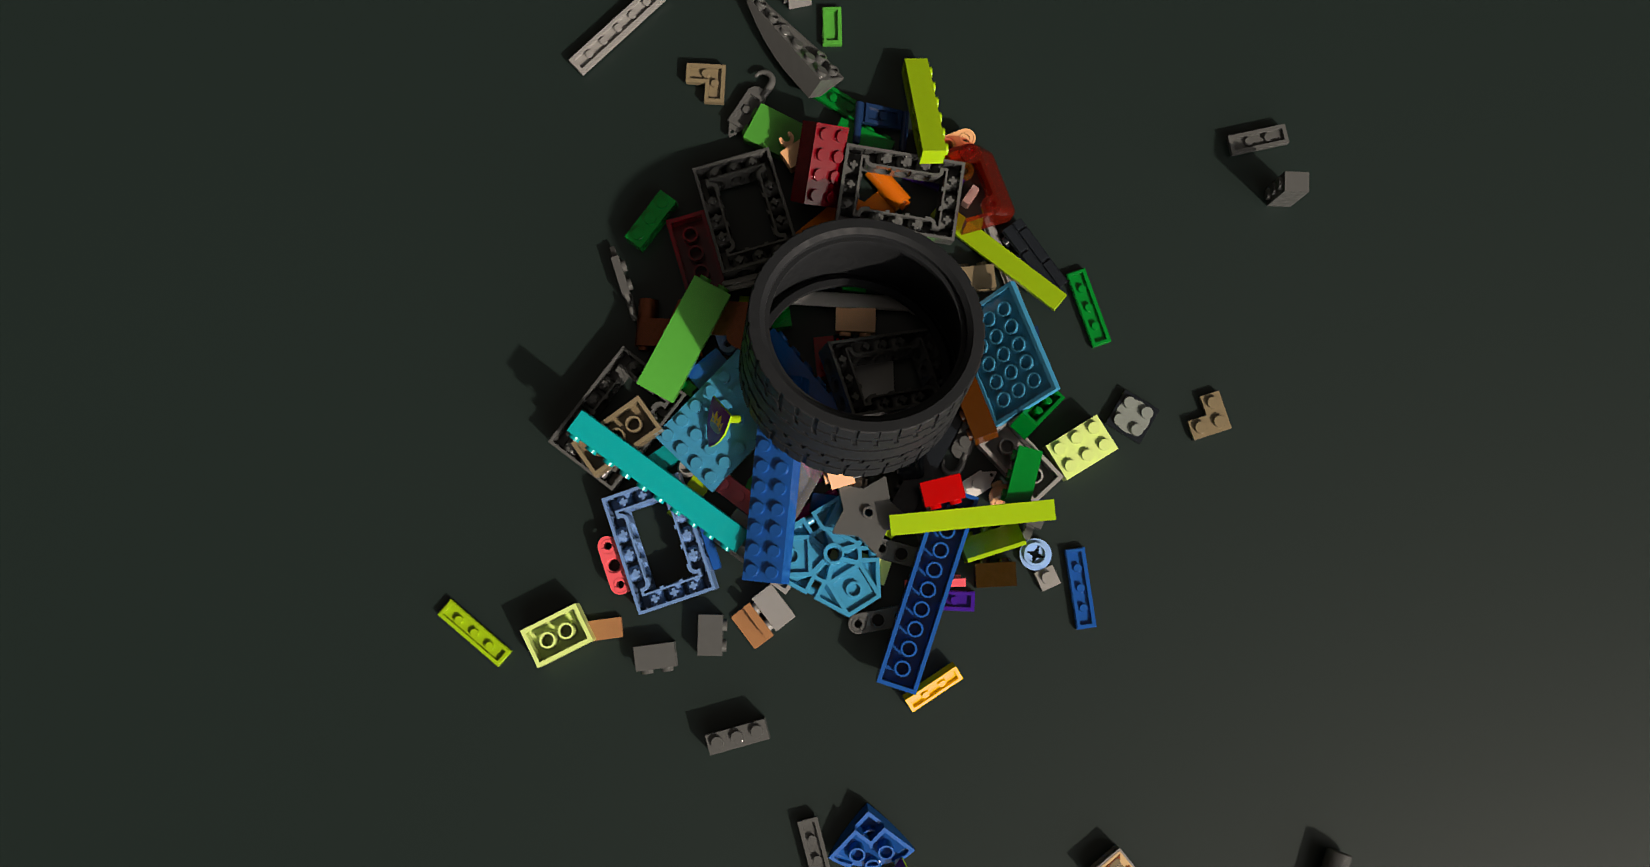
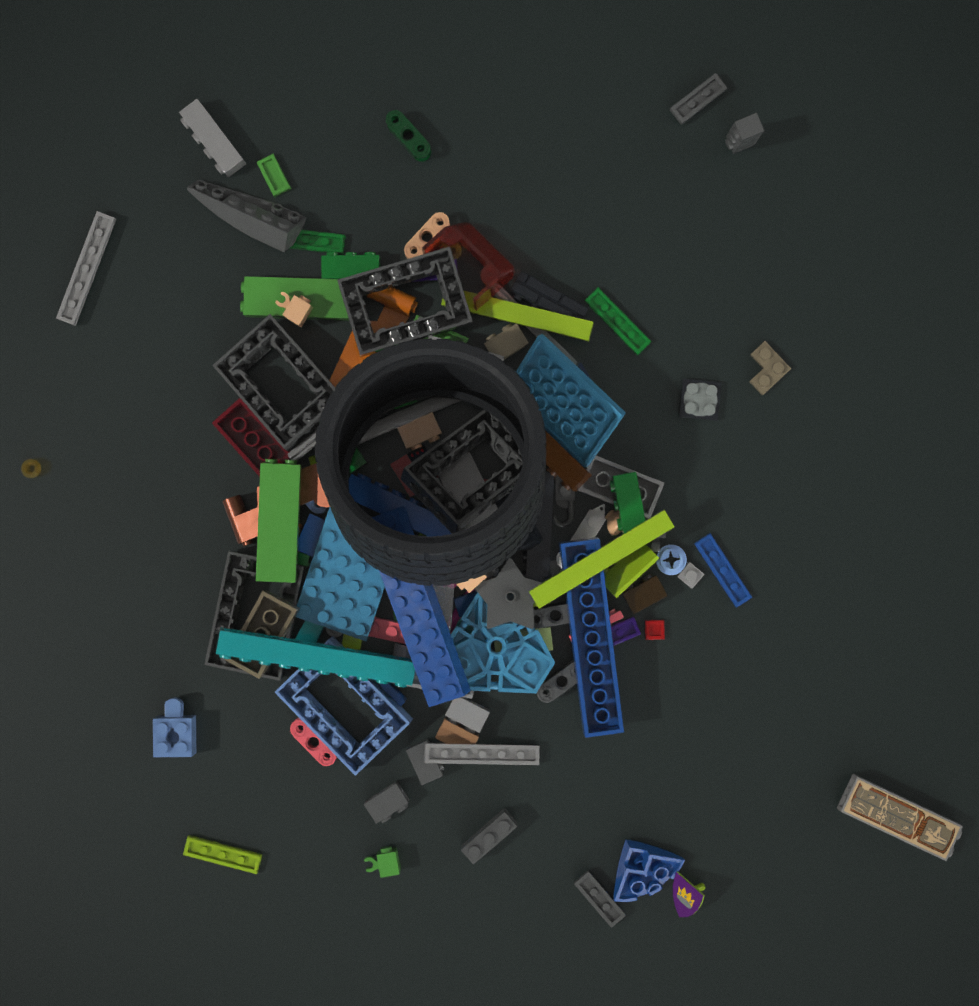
camera: 20 degrees left, 5 degrees up
(474, 180) = (25, 468): none -> clear yellow plate
(487, 493) = (174, 732): none -> medium blue brick
(558, 635) = (294, 824): yellowish green brick -> none
(607, 628) = (330, 800): medium nougat tile -> none
(625, 284) = (203, 494): dark grey plate -> none
(627, 715) = (386, 862): none -> bright green brick
(651, 221) = (199, 427): green brick -> none
(711, 76) = (190, 273): dark tan plate -> none
(719, 422) = (343, 579): dark purple shield -> none
(751, 100) = (234, 277): dark grey plate -> none
(768, 652) = (481, 754): none -> light grey plate
(819, 164) = (322, 310): dark red brick -> none
(881, 117) = (357, 238): dark blue plate -> none
(923, 111) = (391, 216): lime brick -> none
(933, 686) = (636, 714): yellow plate -> none
(942, 490) = (565, 549): red brick -> none
(970, 196) = (468, 272): tile -> none
(973, 38) = (405, 126): none -> dark green piece
(988, 613) = (654, 630): none -> red tile
(1032, 417) = (613, 446): green brick -> none
(1080, 448) = (667, 449): yellowish green brick -> none

